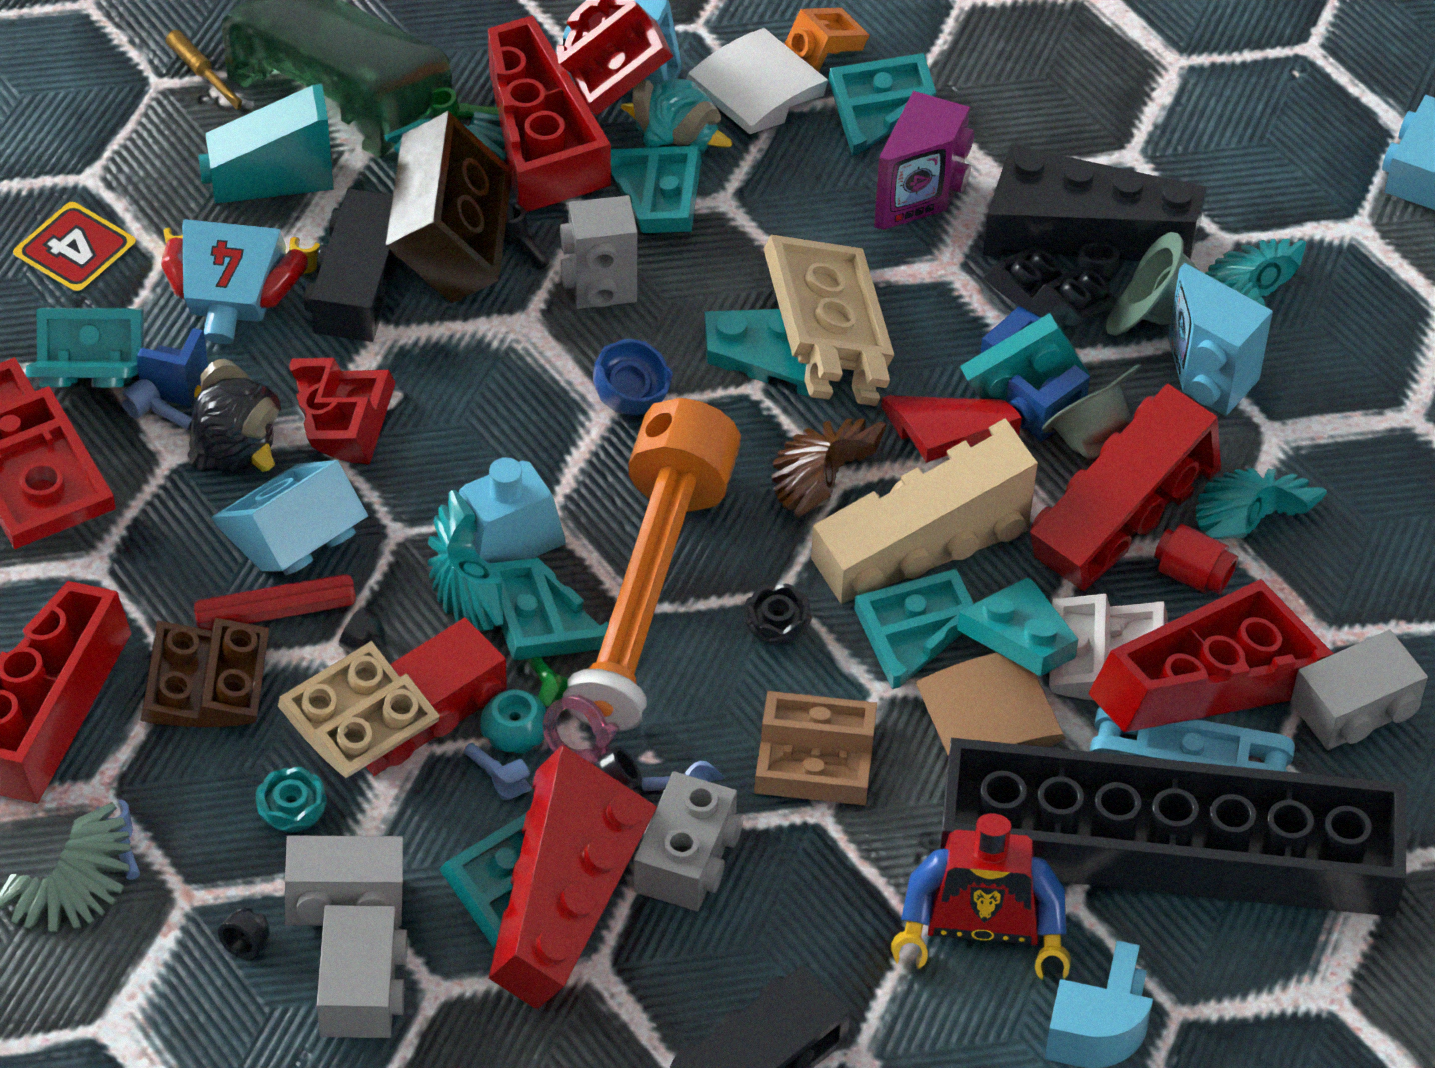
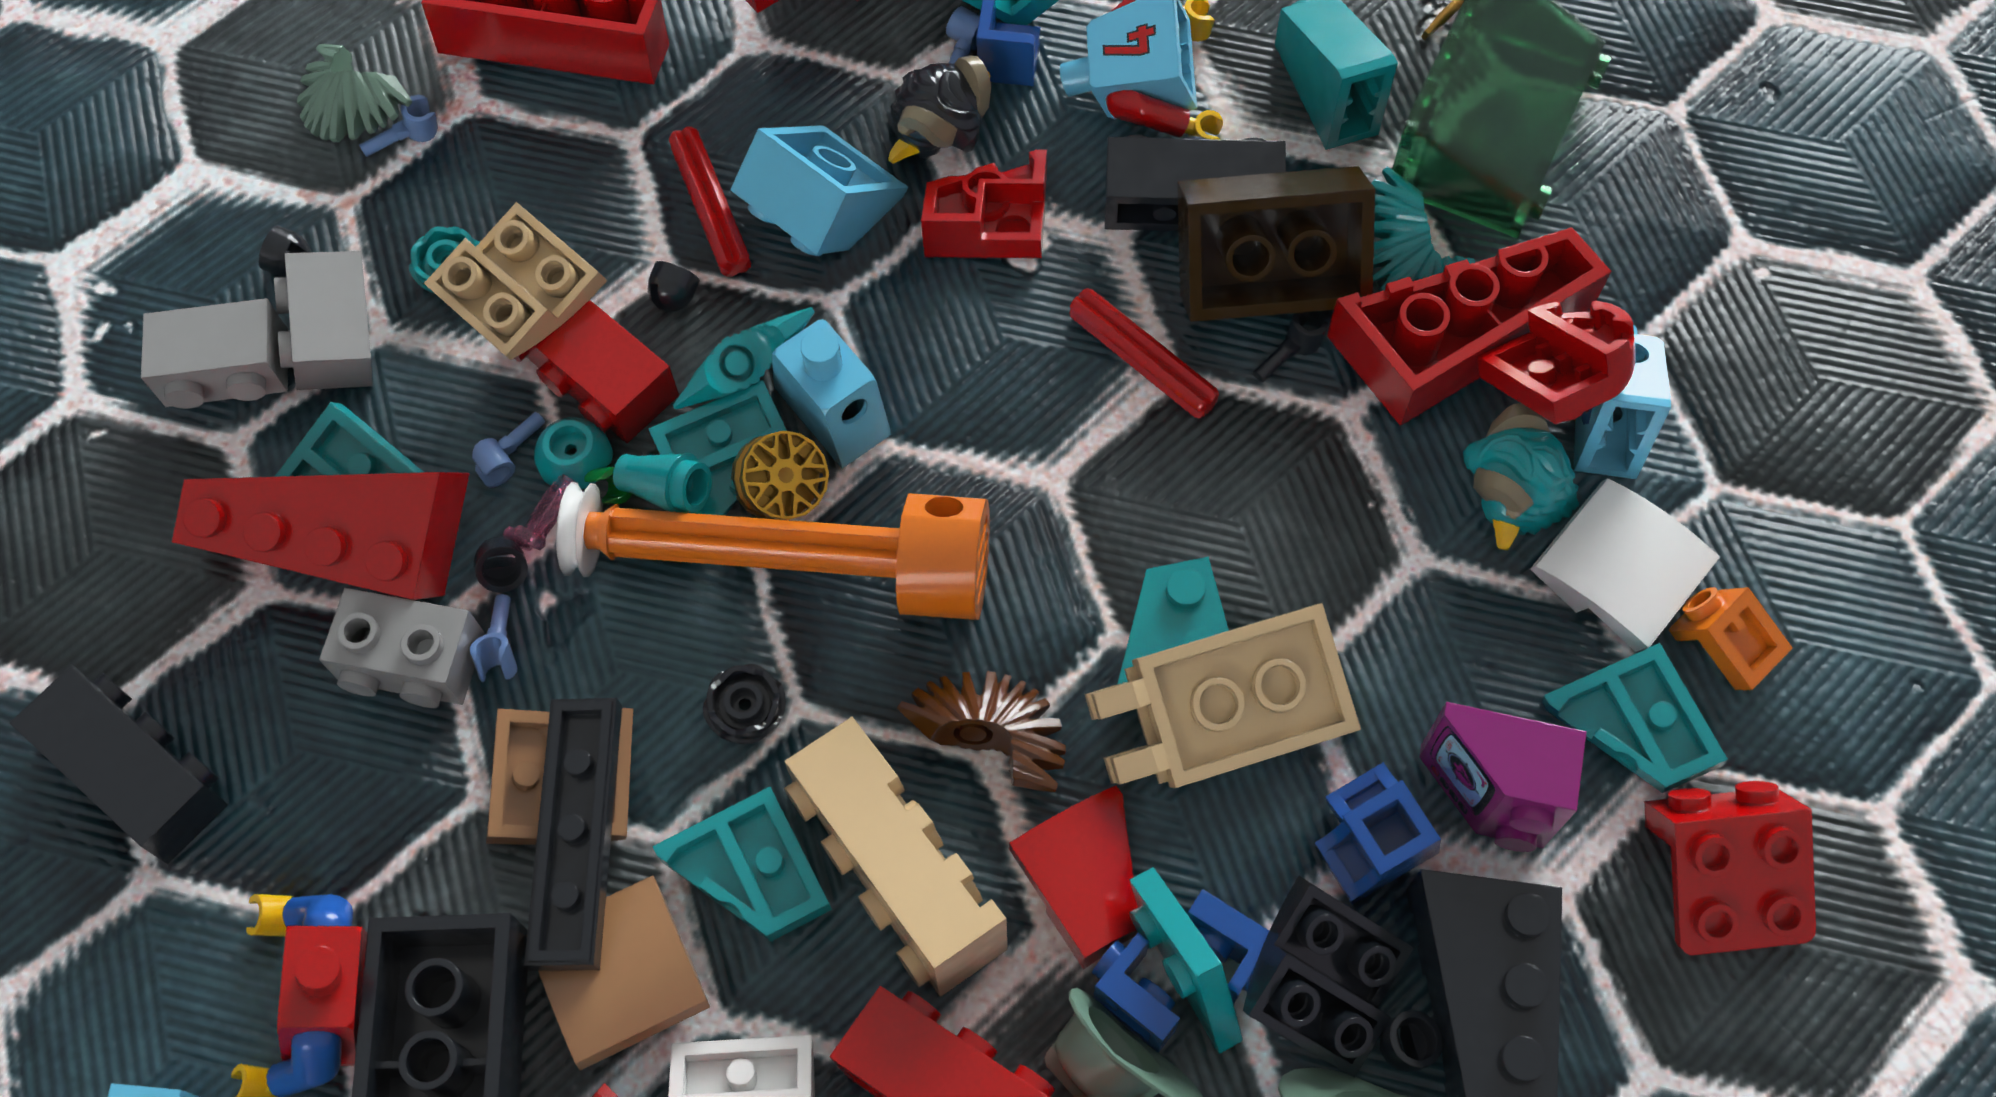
camera: 85 degrees right, 15 degrees up
(205, 674) = (609, 156): reddish brown slope -> none
(446, 100) = (1475, 239): green hand -> none
(507, 327) = (1144, 353): none -> red axle
(576, 629) = (665, 480): none -> teal cone
(580, 562) = (779, 475): none -> wheel
(600, 251) = (1247, 416): light grey brick -> none
(631, 377) = (1073, 486): blue hair -> none
(659, 184) = (1405, 476): teal wing -> none
(874, 713) = (574, 835): none -> black tile
(947, 246) = (1378, 833): none -> blue brick
(995, 61) = (1738, 867): none -> red bracket
(1021, 627) = (737, 995): teal wing -> none

